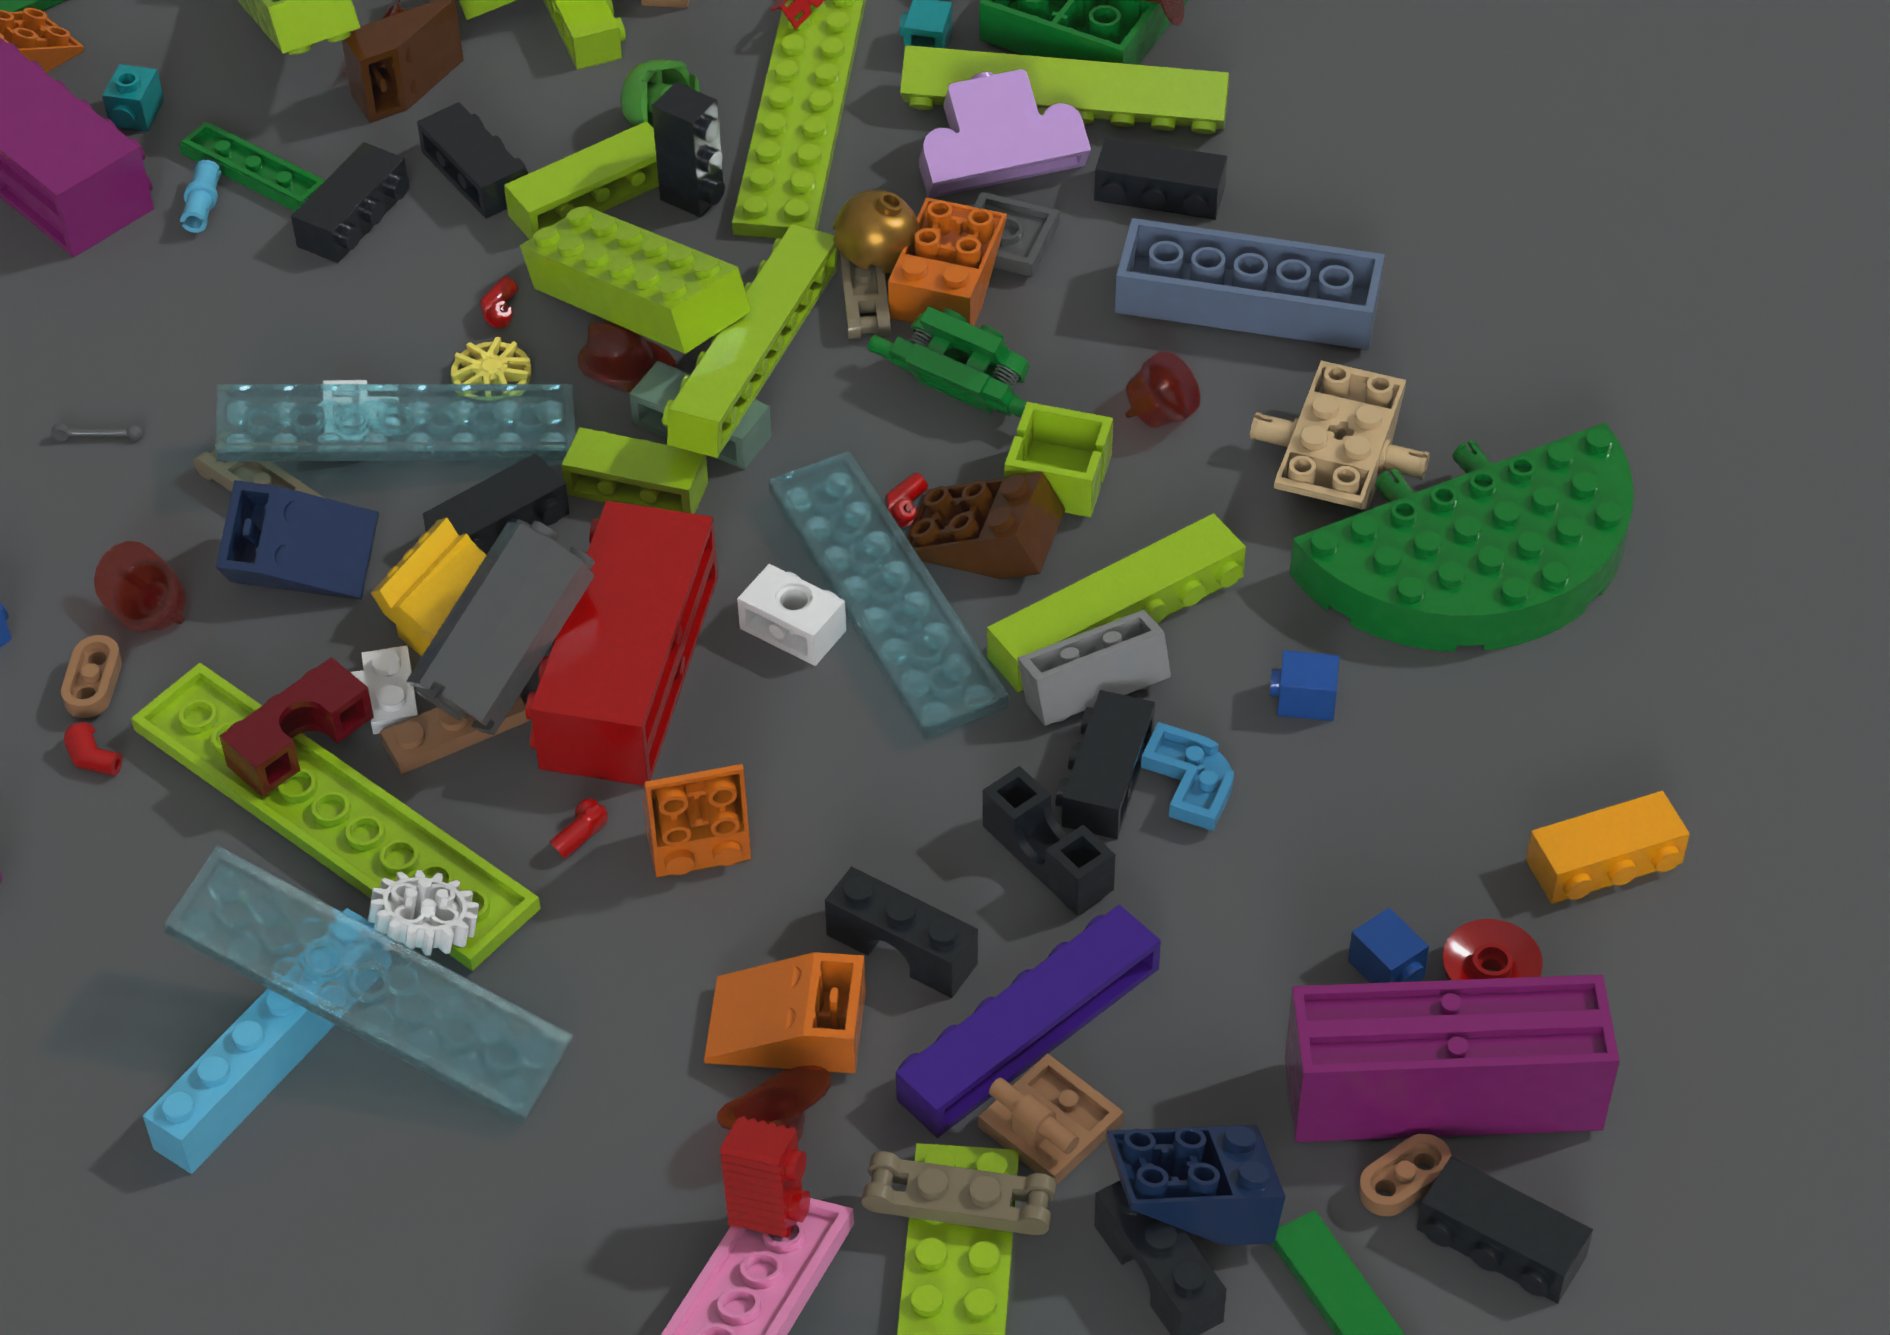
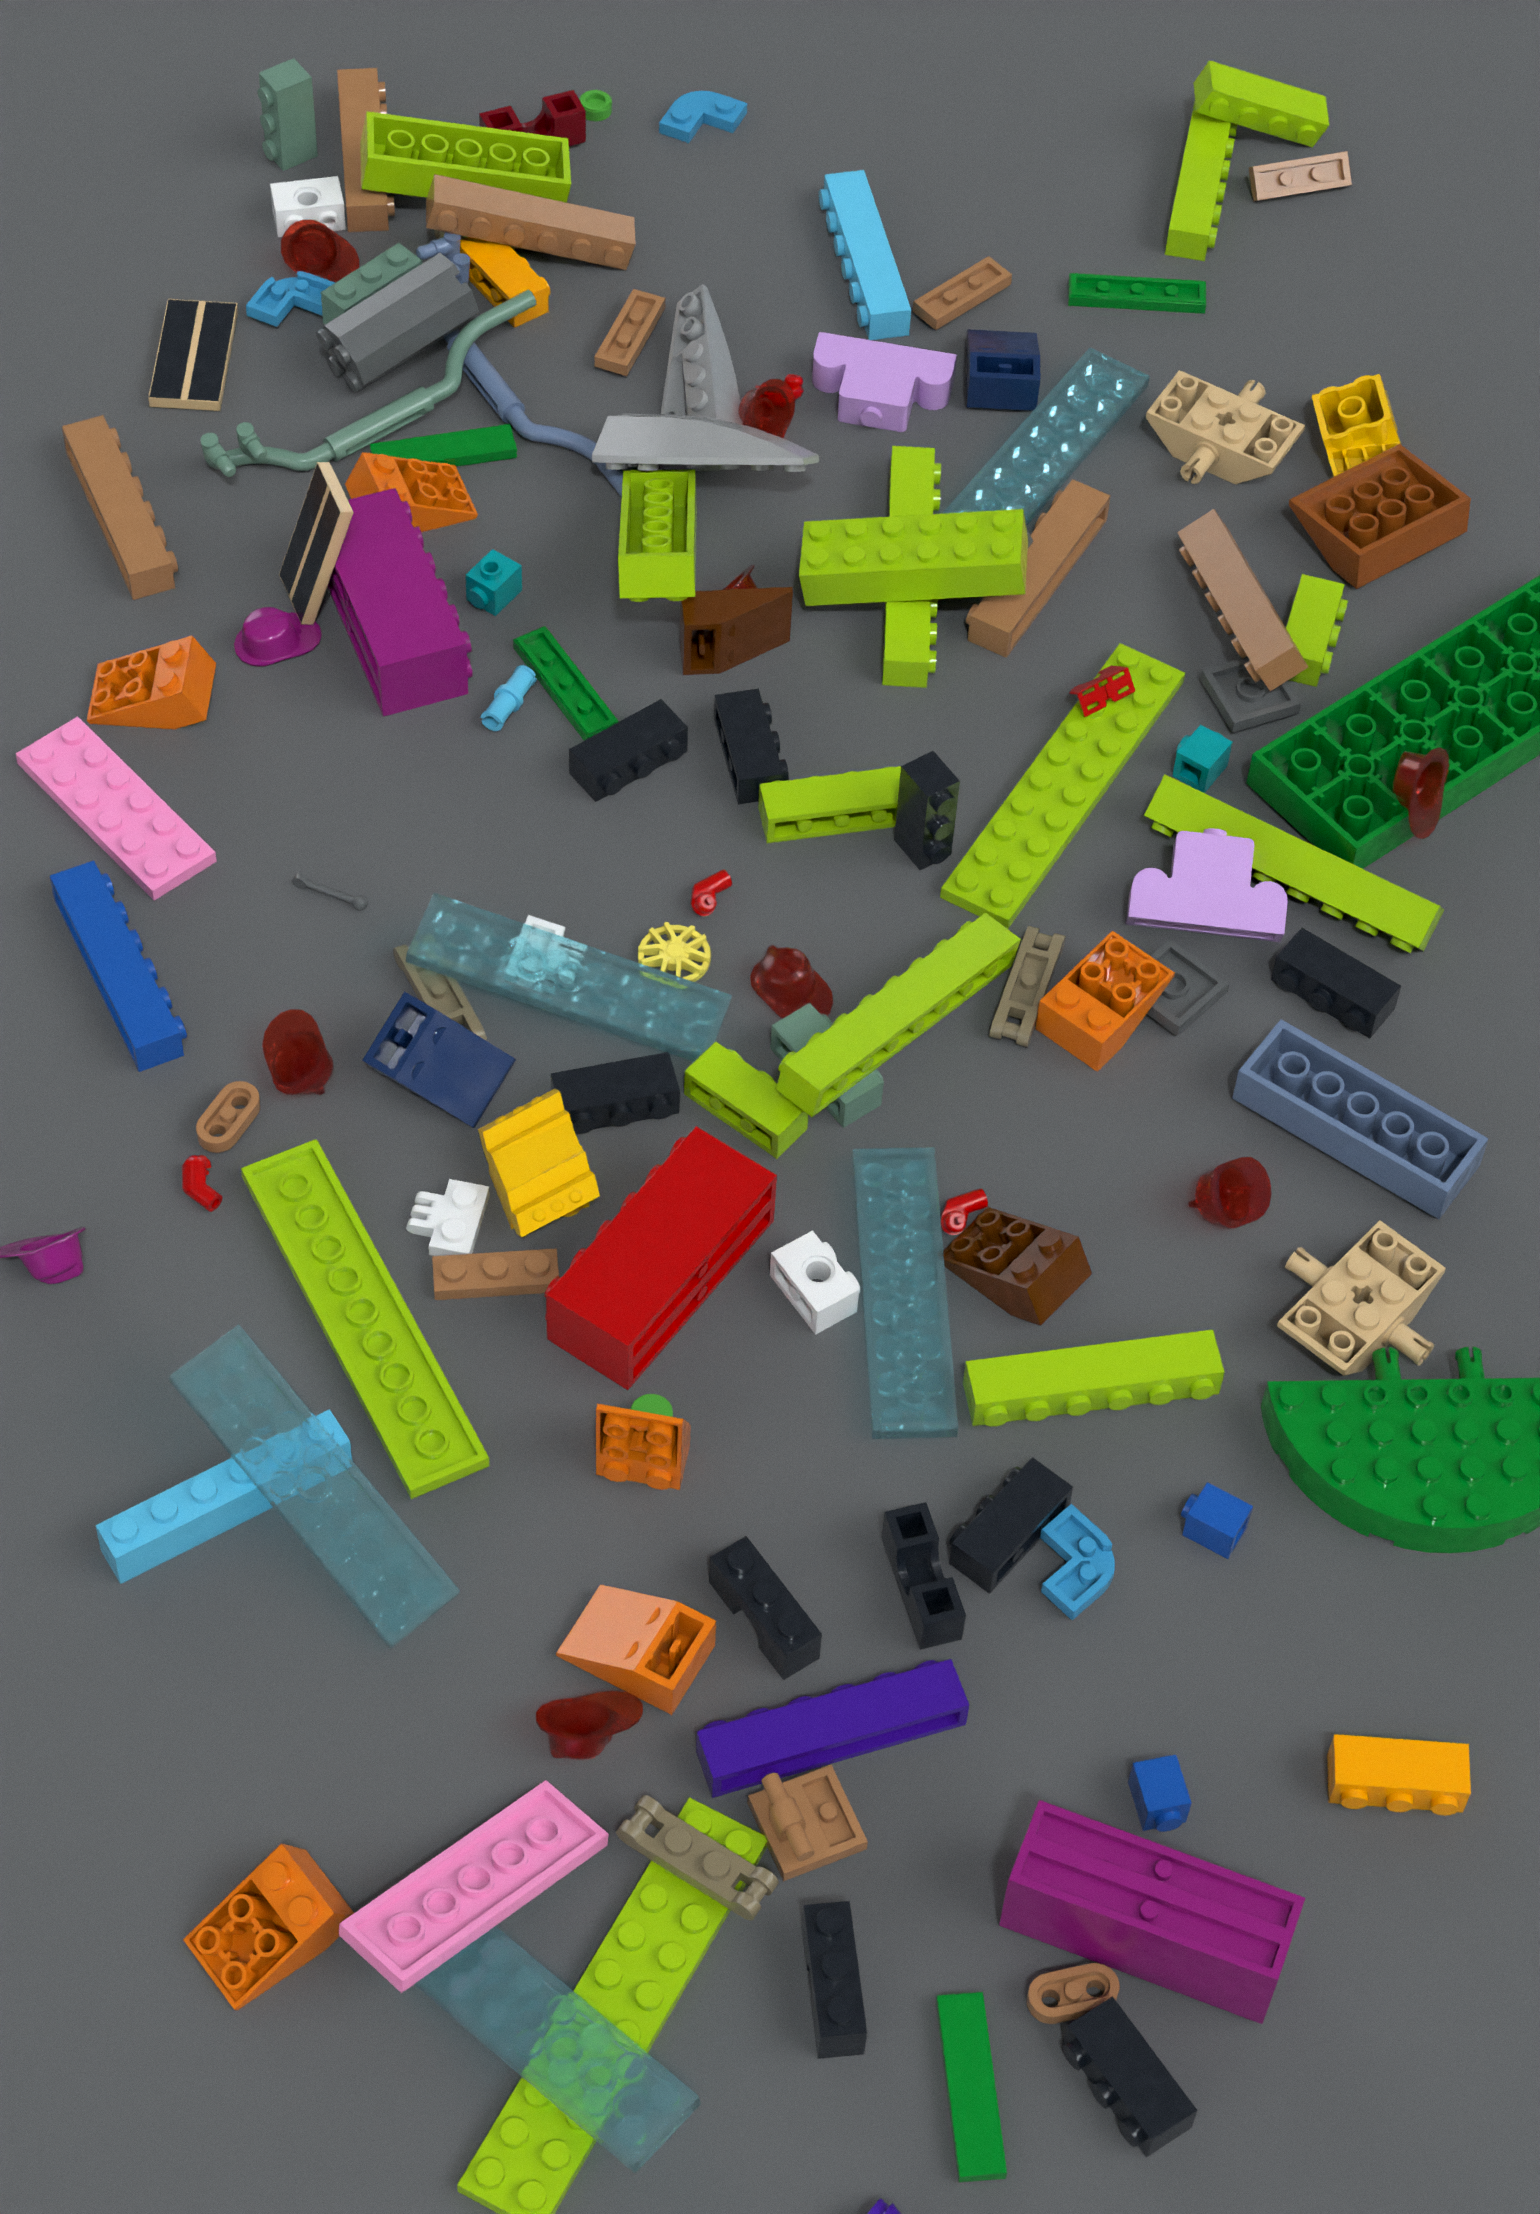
camera: 20 degrees right, 5 degrees up
(321, 701) = (392, 1214): dark red arch -> none
(424, 912) = (390, 1455): white gear -> none
(502, 625) = (556, 1211): dark grey brick -> none
(589, 820) = (563, 1404): red arm -> none
(636, 278) = (823, 920): lime brick -> none
(648, 83) = (936, 732): bright green cylinder -> none
(764, 1177) = (540, 1782): red brick -> none
(875, 229) = (1053, 945): pearl gold cylinder -> none
(959, 361) = (1073, 1122): green piece -> none
(1069, 451) = (1111, 1222): lime piece -> none
(1110, 658) = (1048, 1430): light grey brick -> none
(1202, 1180) = (891, 1930): dark blue slope -> none
(1493, 946) = (1249, 1819): red dish -> none

